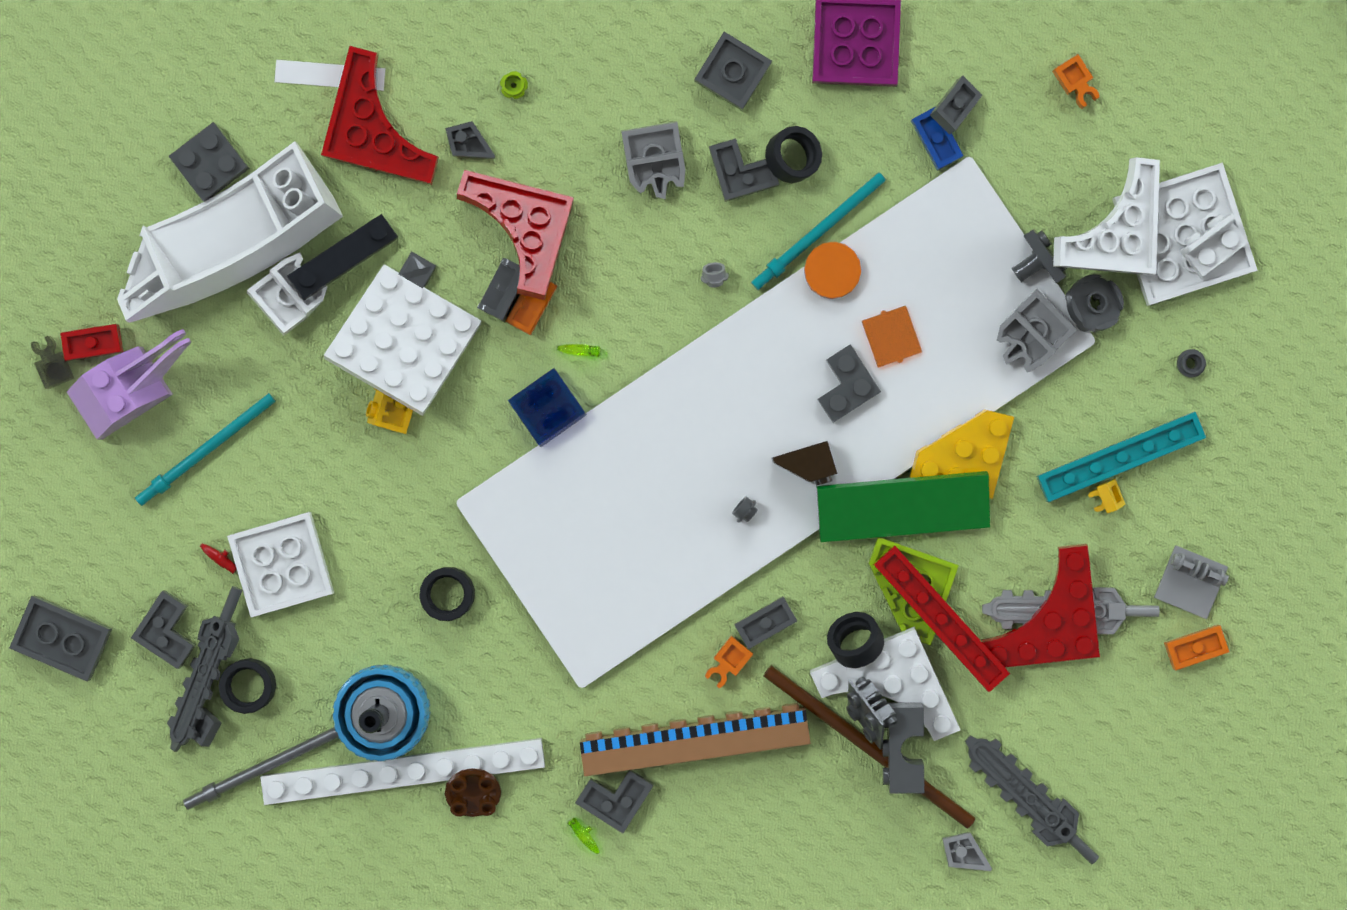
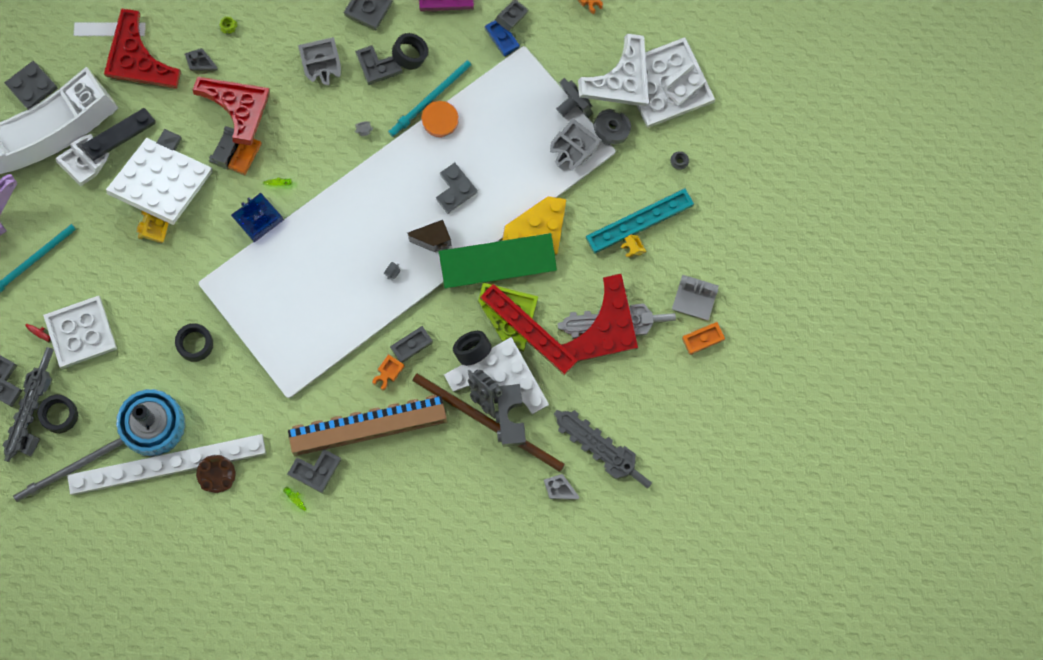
camera: 10 degrees left, 15 degrees down
(891, 336) = (482, 157): clear orange piece -> none

